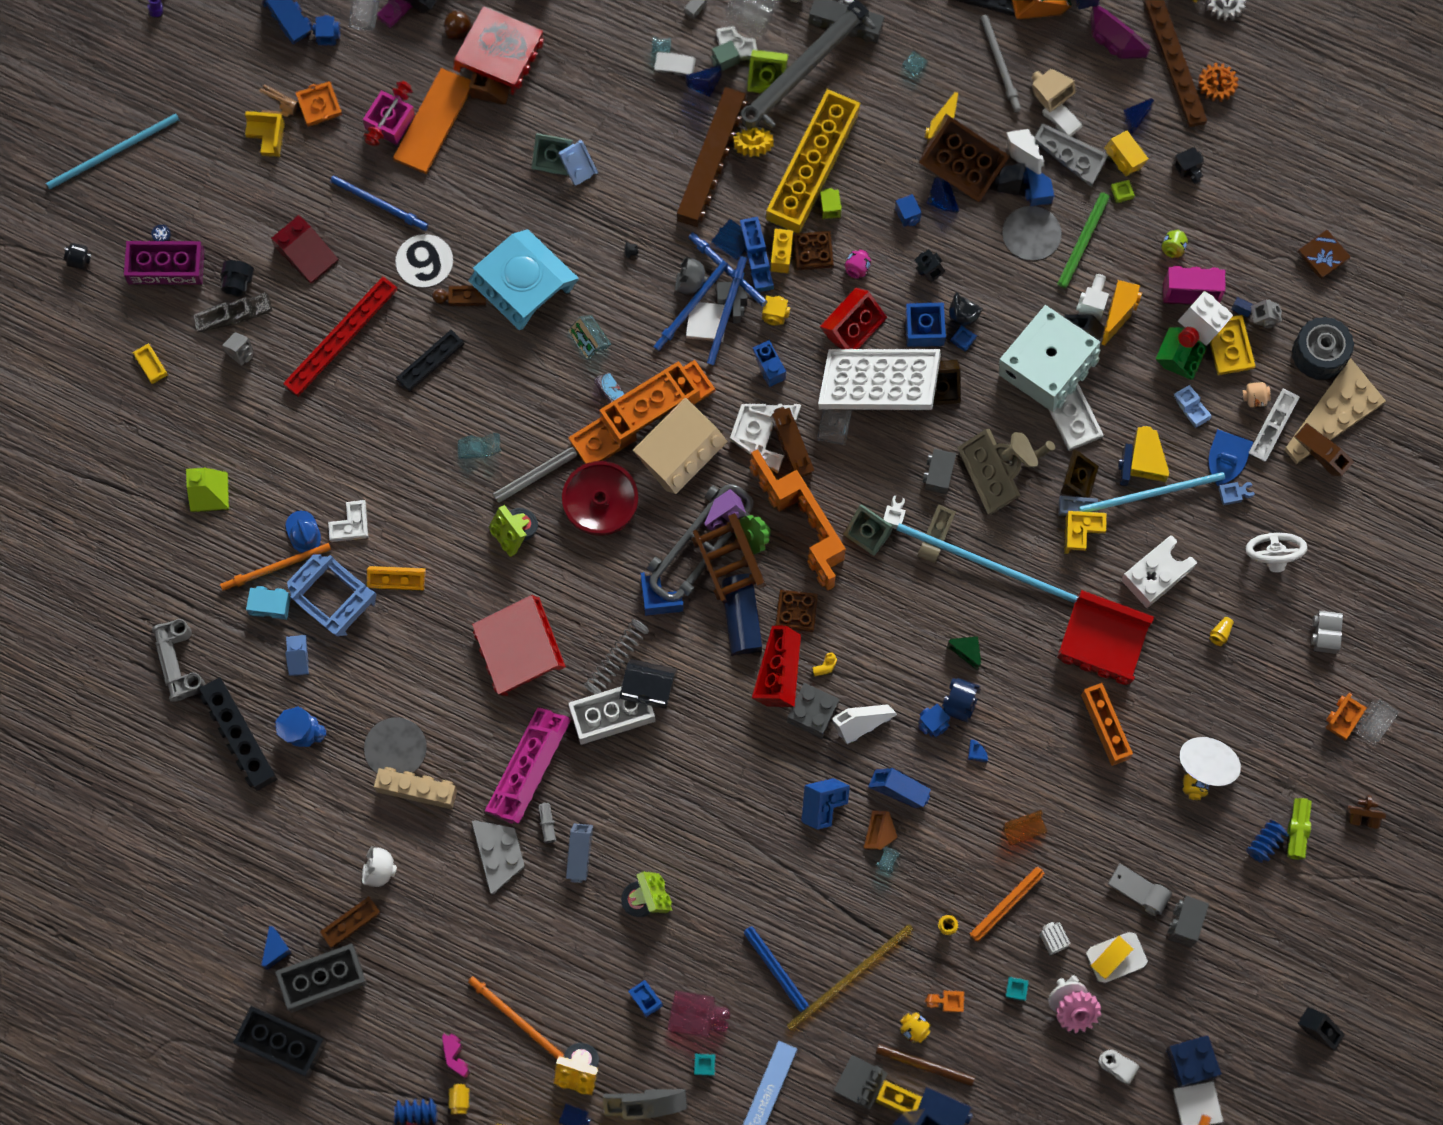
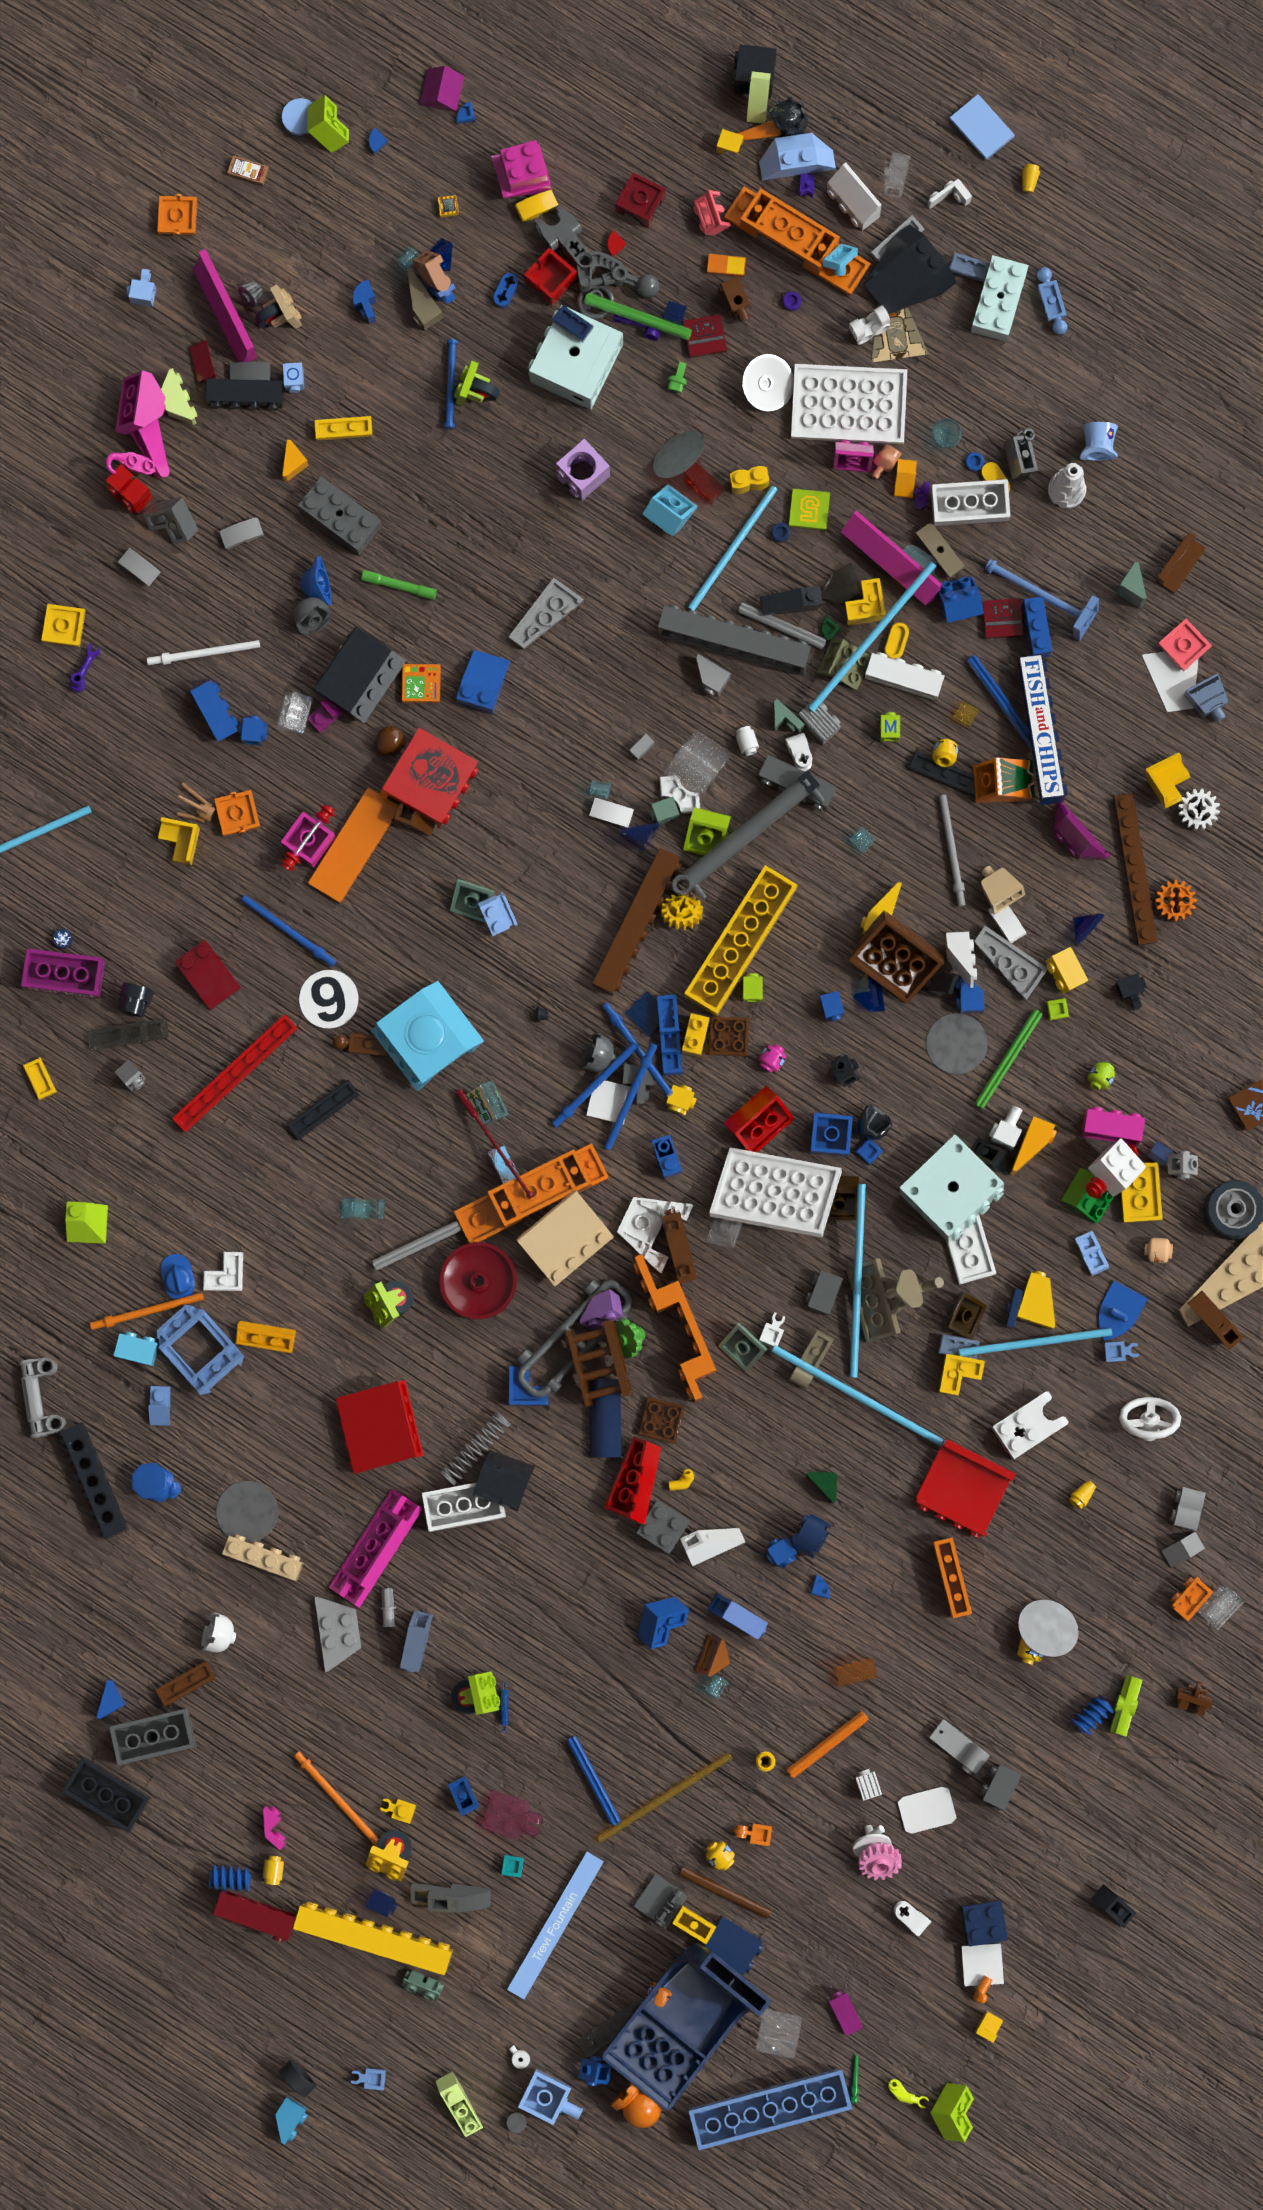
camera: 10 degrees right, 10 degrees up
(572, 341) = (474, 1114): none -> dark red piece
(584, 1023) = (401, 1810): none -> yellow plate
(676, 910) = (503, 1707): none -> blue piece
(970, 454) = (857, 1280): none -> medium azure piece
(1017, 989) = (824, 1830): teal plate -> none
(1112, 957) = (921, 1811): yellow slope -> none
(1274, 425) = (1171, 1284): white slope -> none
(1328, 672) = (1183, 1549): none -> light grey slope

